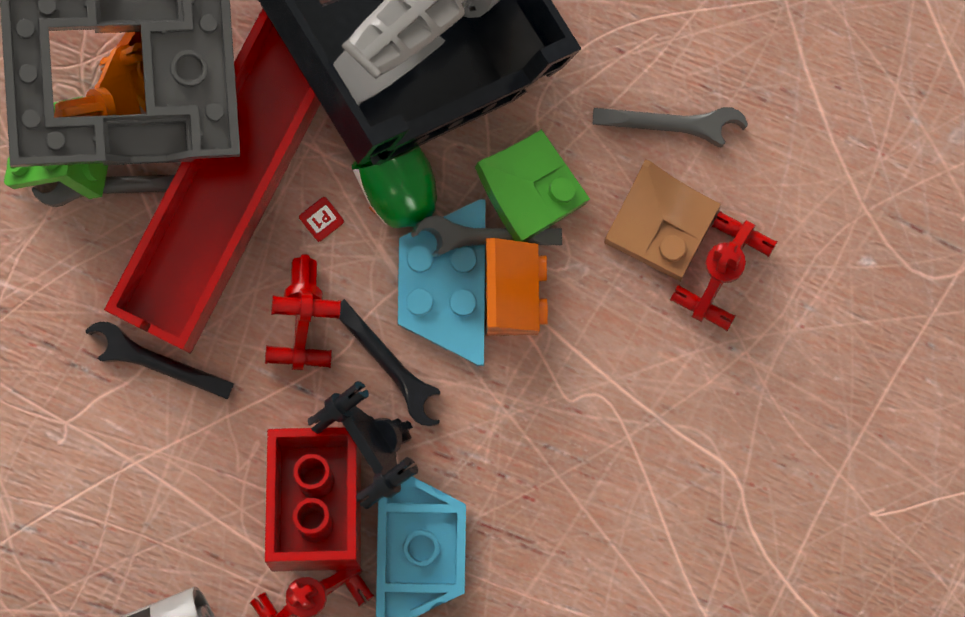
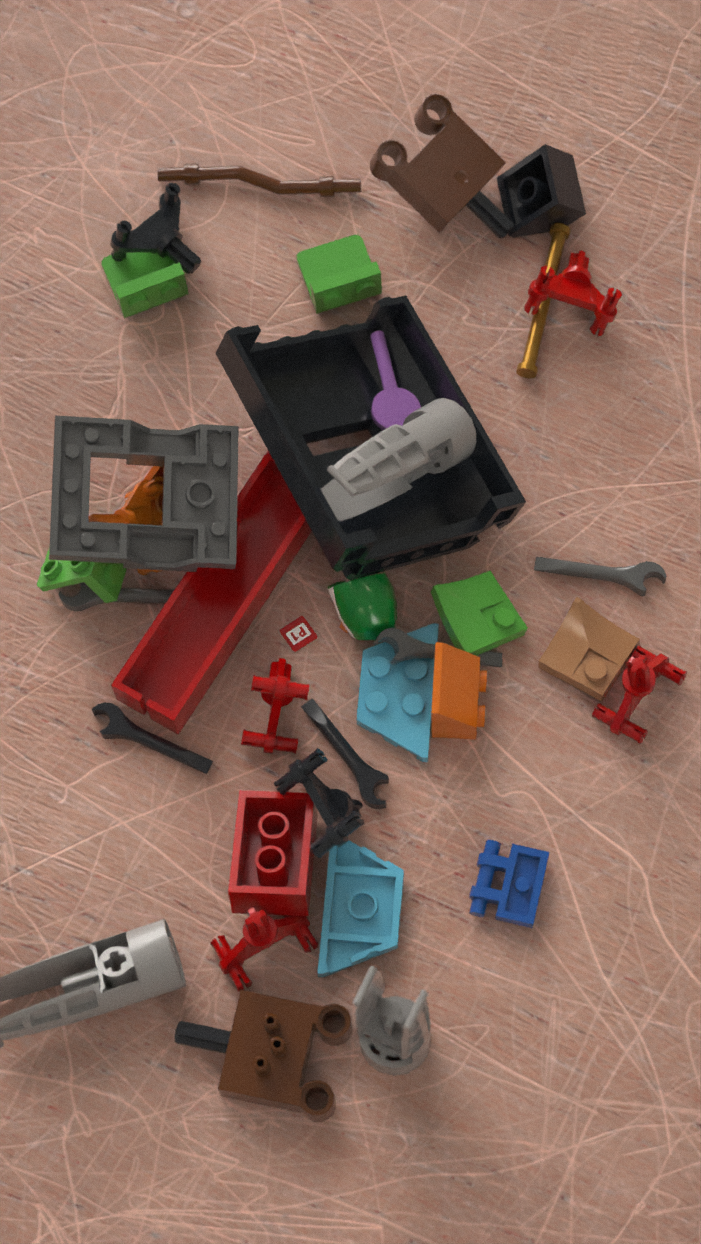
camera: 15 degrees right, 15 degrees down
(601, 508) = (521, 884): none -> blue plate

